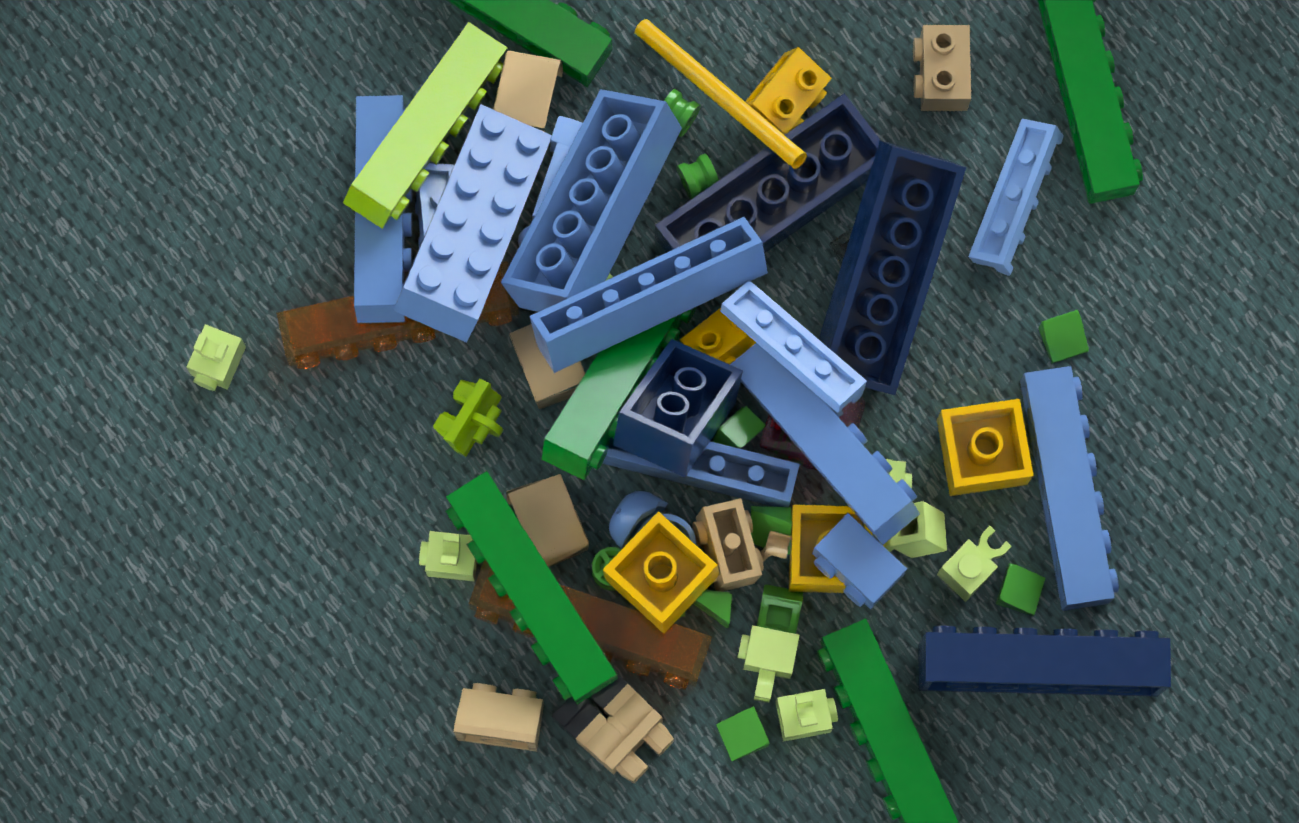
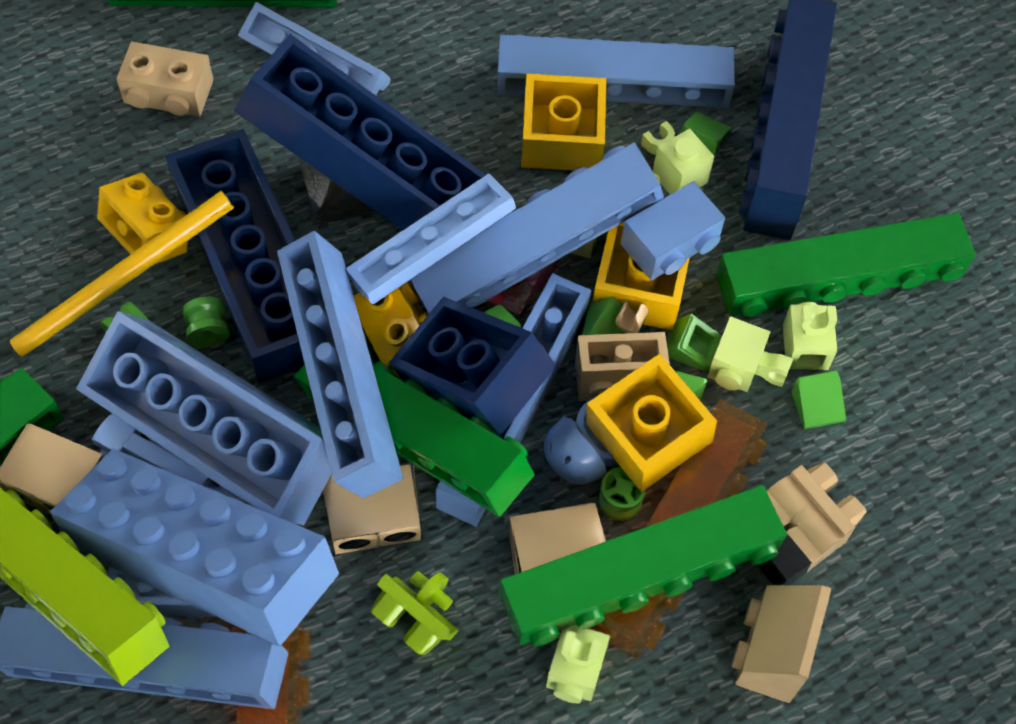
camera: 80 degrees left, 15 degrees down
(1064, 336) = (463, 48): bright green slope -> none

